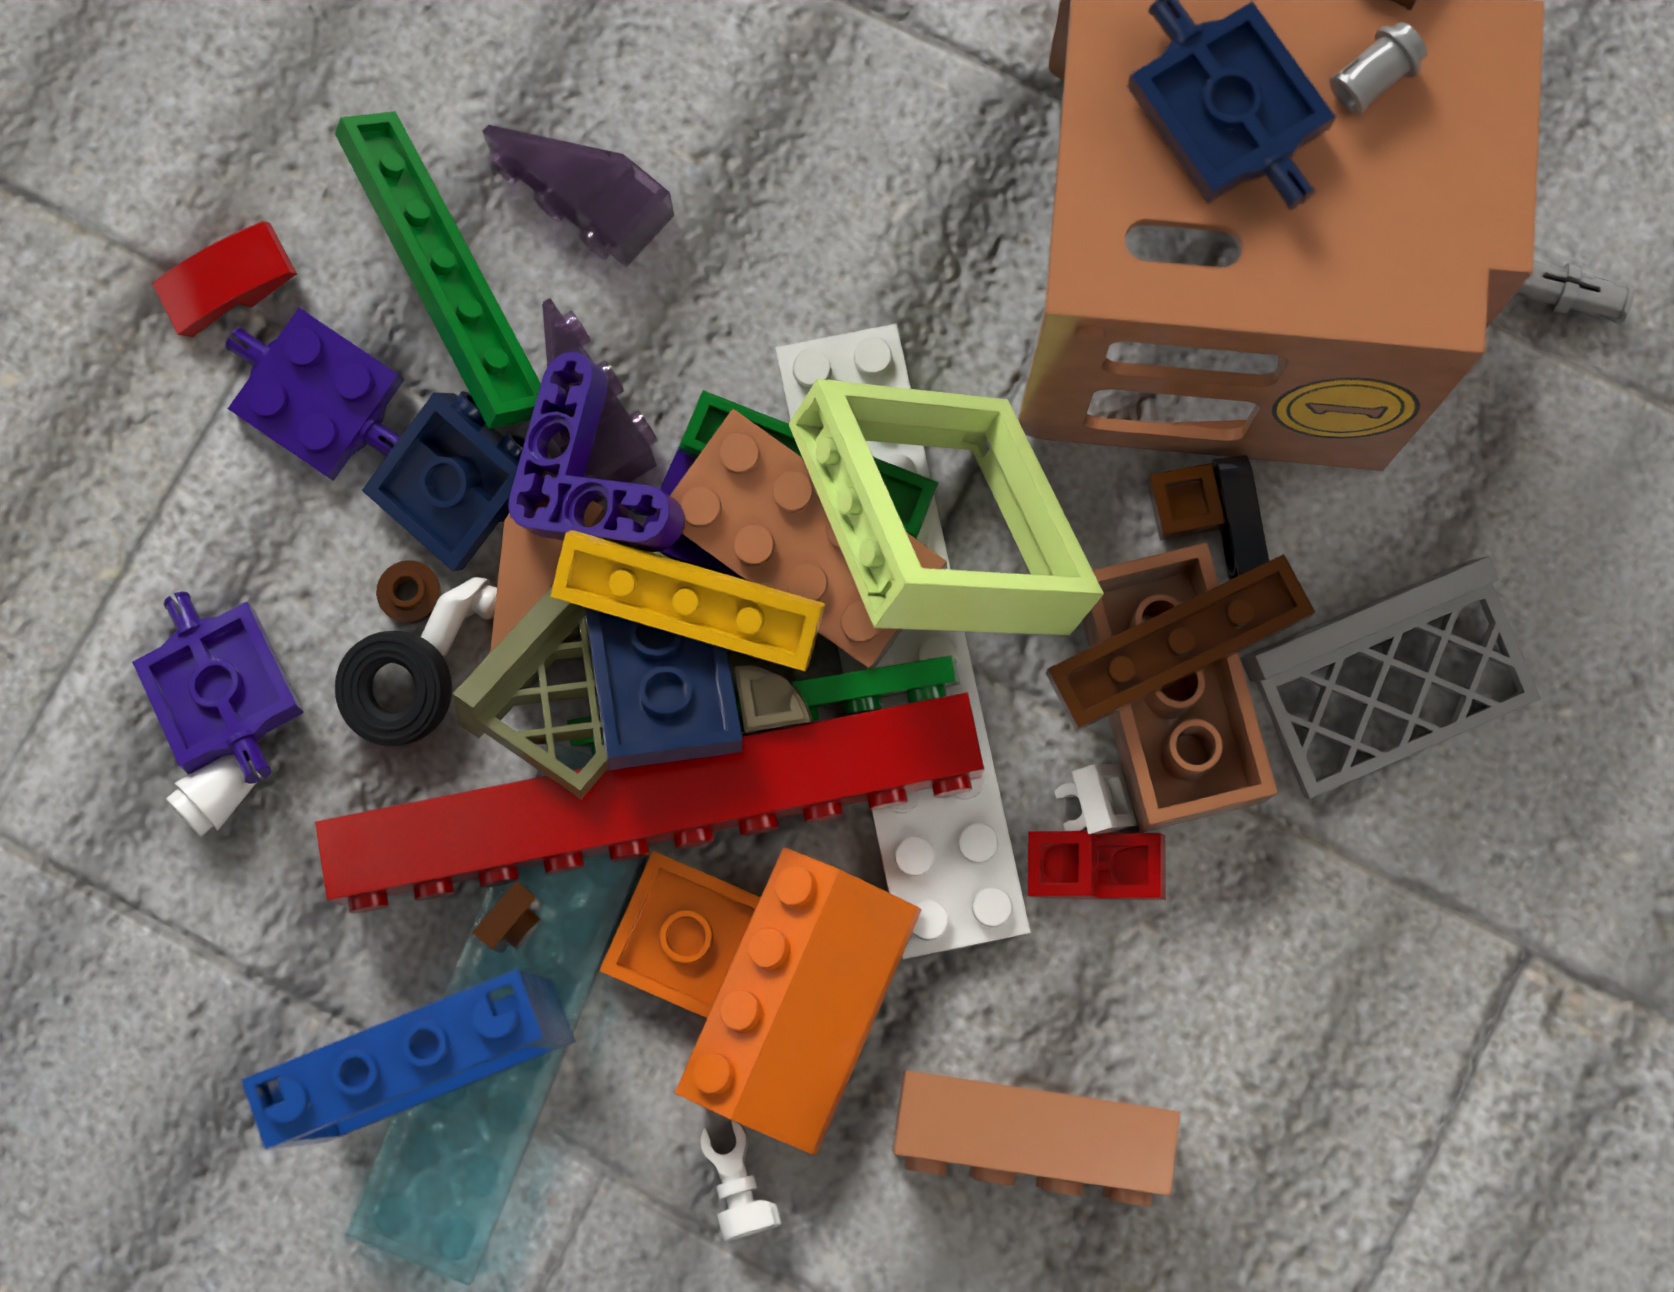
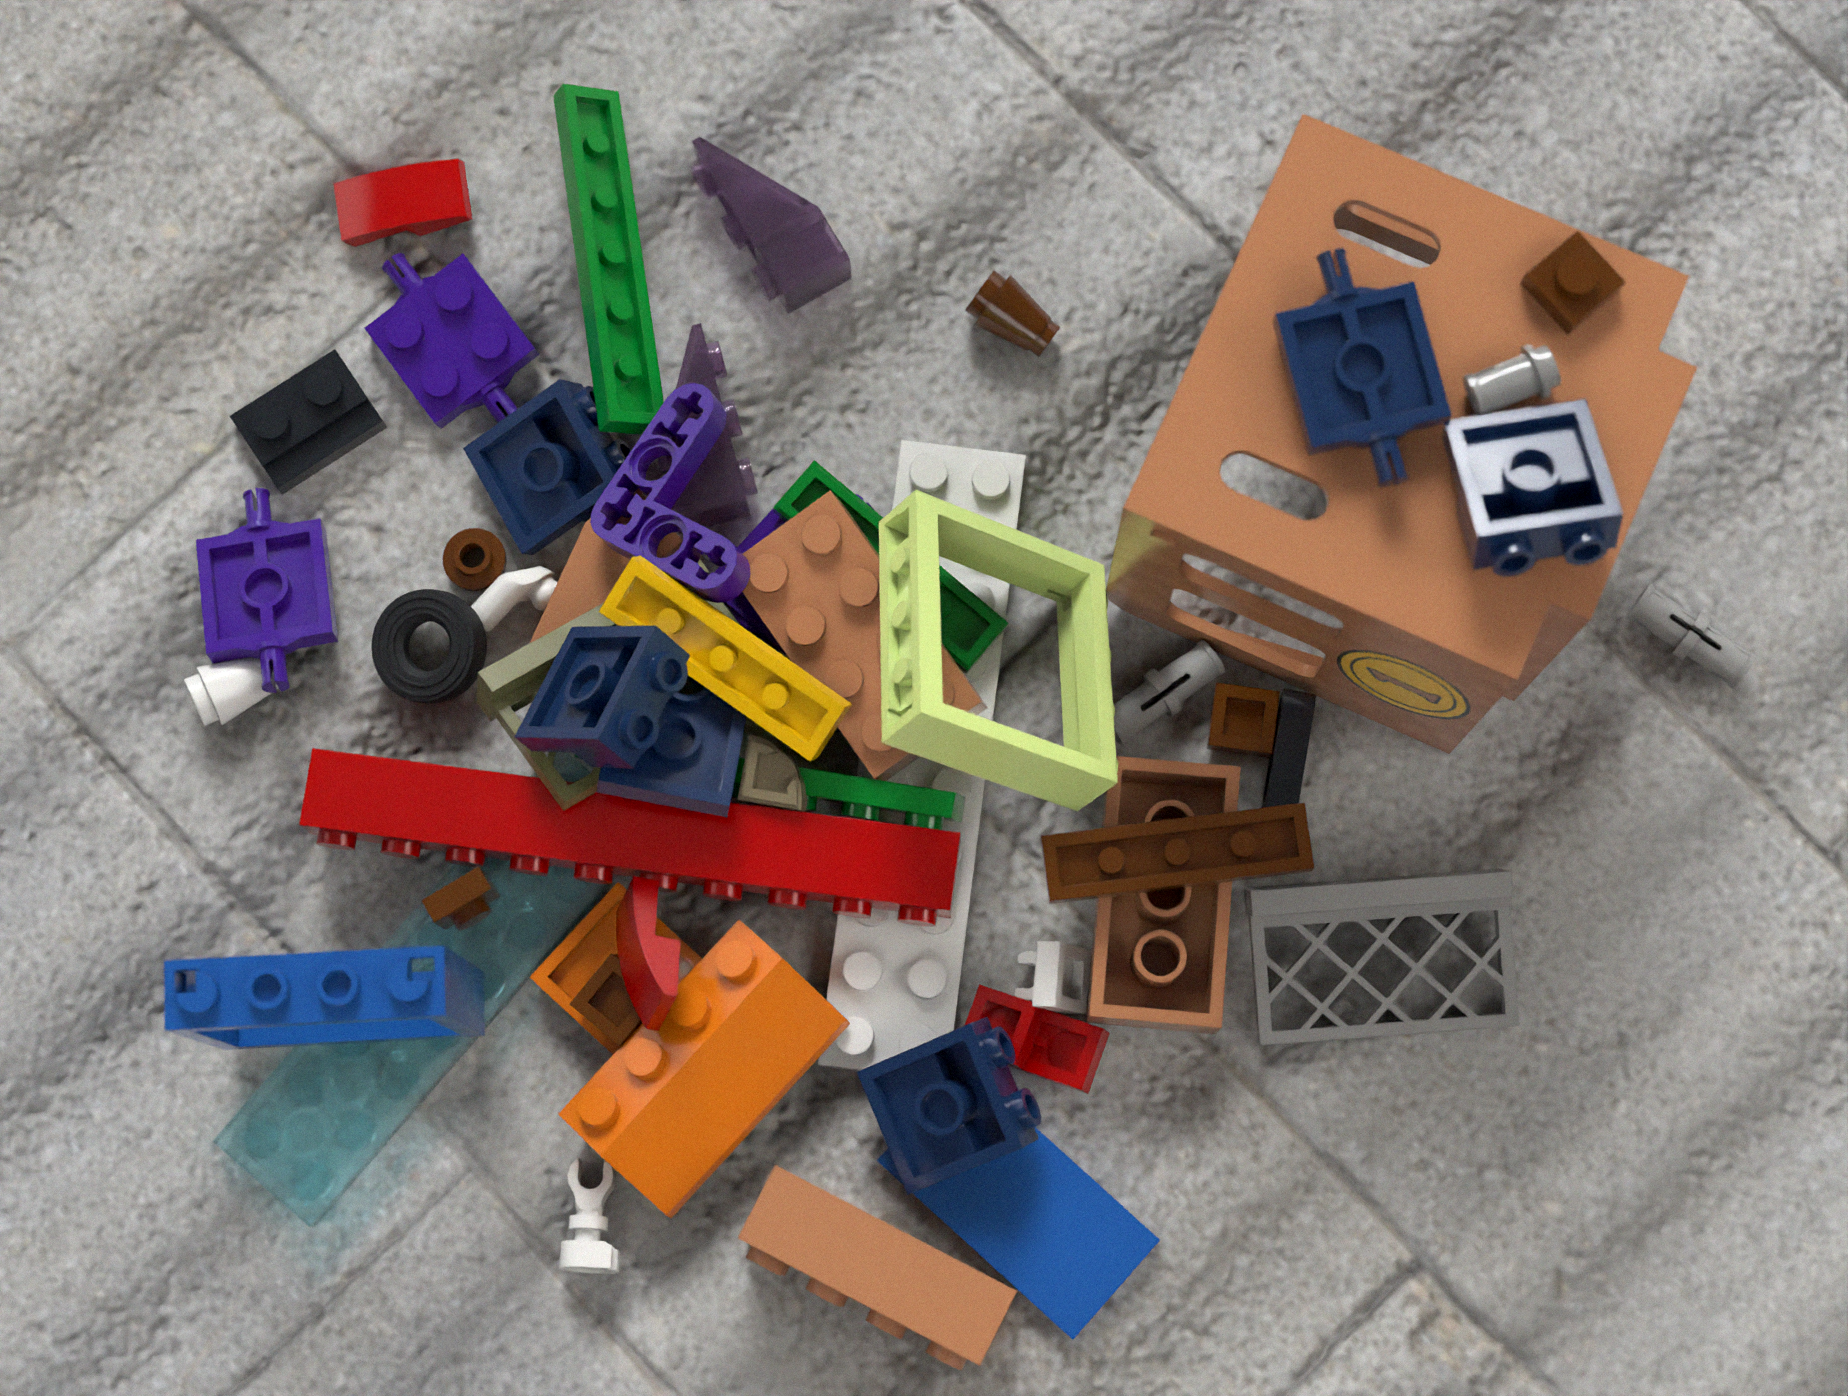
camera: 20 degrees right, 0 degrees up
(203, 515) = (308, 421): none -> black plate
(586, 672) = (605, 694): none -> dark blue plate
(692, 964) = (607, 1002): none -> reddish brown plate
(710, 916) = (646, 960): none -> red slope
(838, 198) = (1012, 314): none -> reddish brown cone
(1046, 954) = (950, 1104): none -> dark blue plate
(1125, 469) = (1197, 668): none -> light grey pin
(1137, 1023) = (1042, 1229): none -> blue tile
(1438, 160) = (1532, 487): none -> plate

